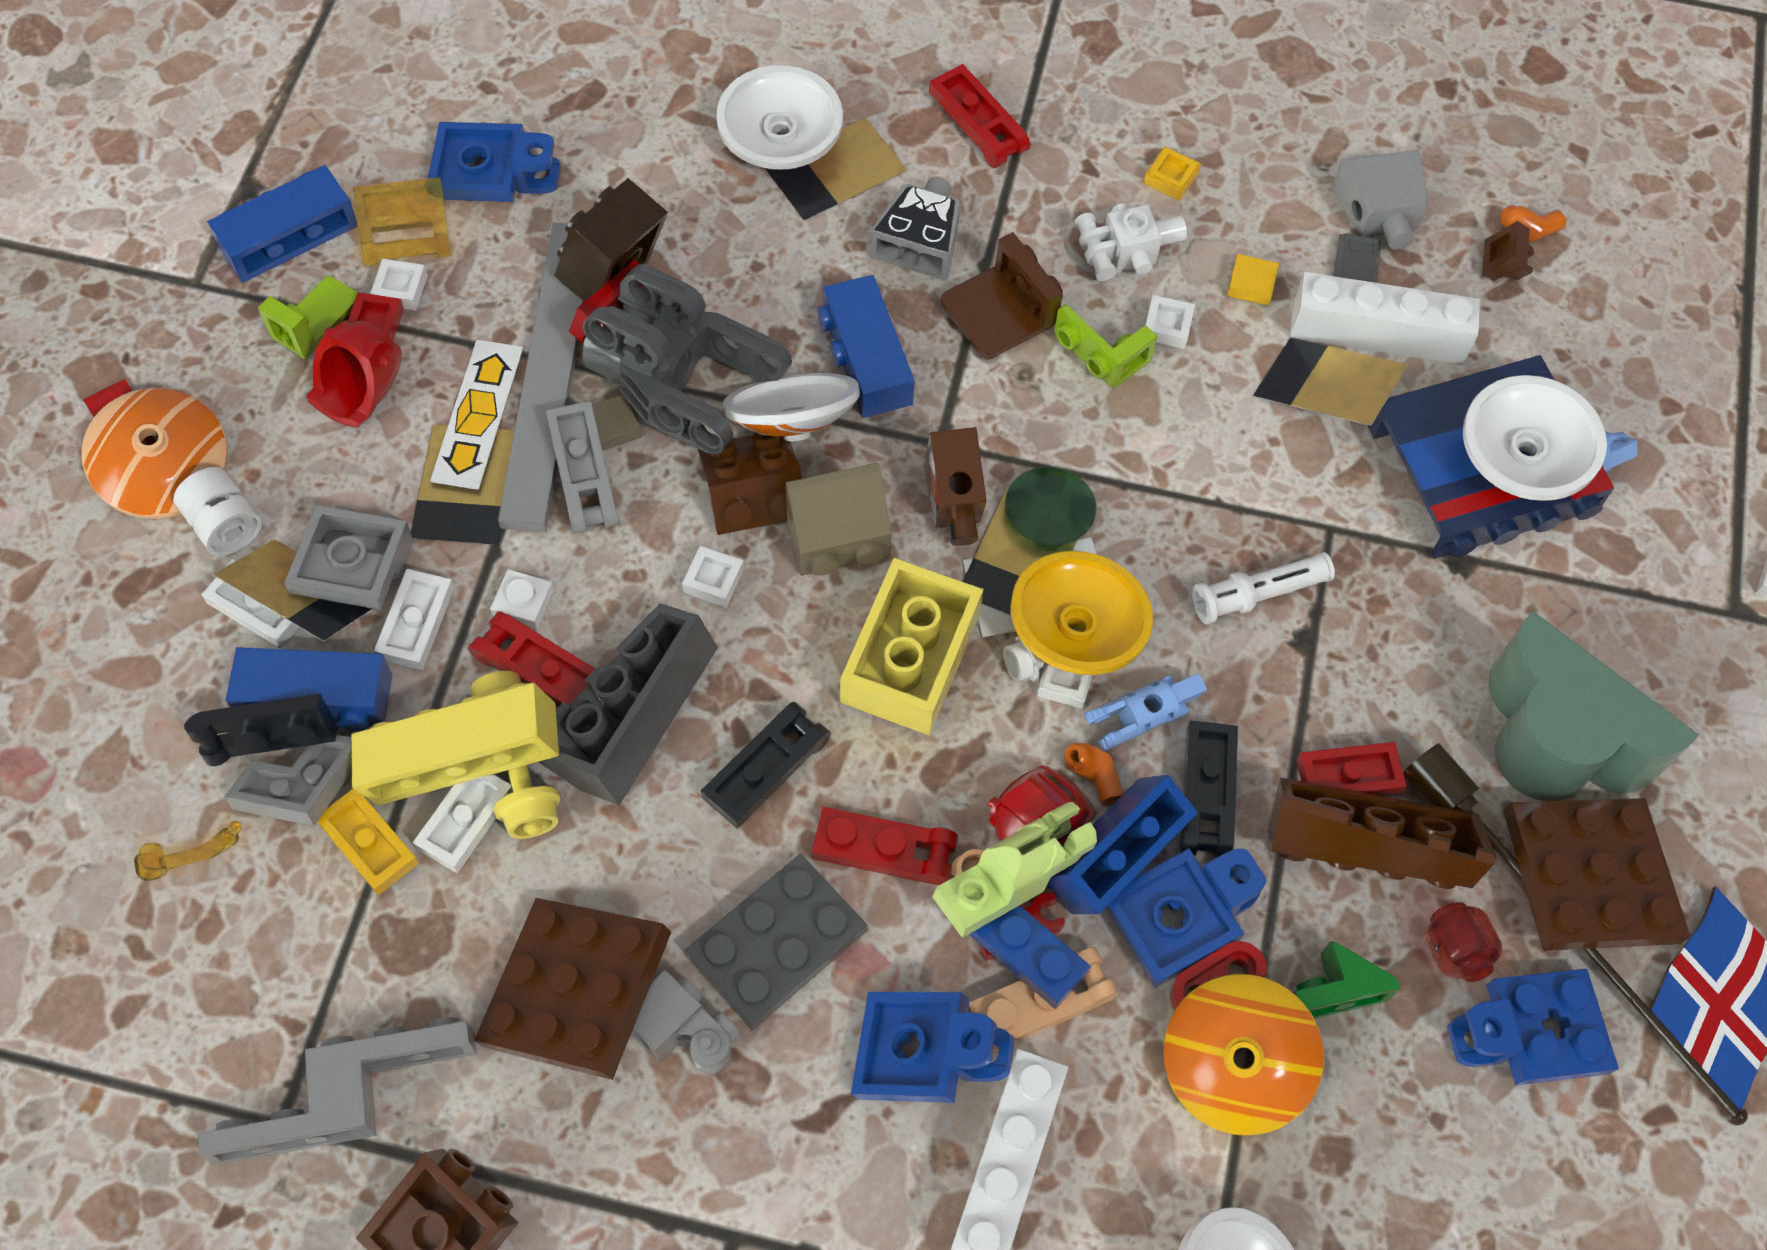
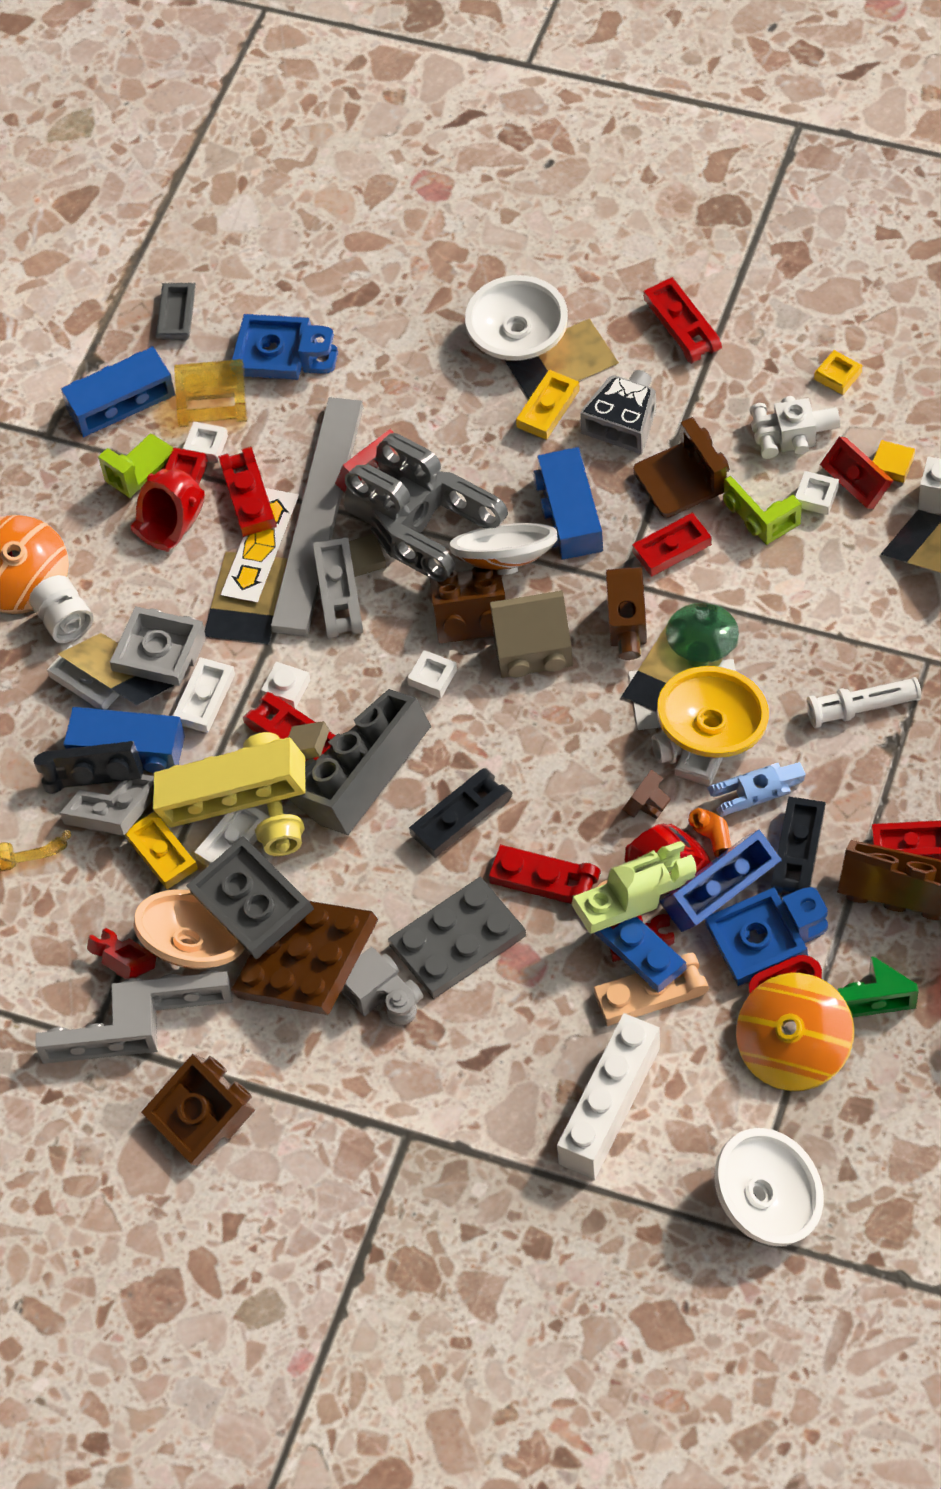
camera: 15 degrees right, 5 degrees down
(320, 1003) = (123, 957): none -> red plate
(353, 121) = (175, 311): none -> dark grey tile
(412, 959) = (184, 931): none -> light nougat dish
(457, 347) = (247, 492): none -> red plate
(492, 910) = (249, 897): none -> dark grey plate
(559, 676) = (310, 738): none -> dark tan tile
(608, 238) = (370, 411): dark brown brick -> none
(827, 223) = (547, 404): none -> yellow plate
(911, 646) = (578, 731): light yellow brick -> none
(949, 1047) = (575, 1004): blue plate -> none
(999, 393) = (671, 544): none -> red plate
(1008, 730) = (648, 797): none -> reddish brown tile
(1214, 294) = (856, 472): none -> red plate

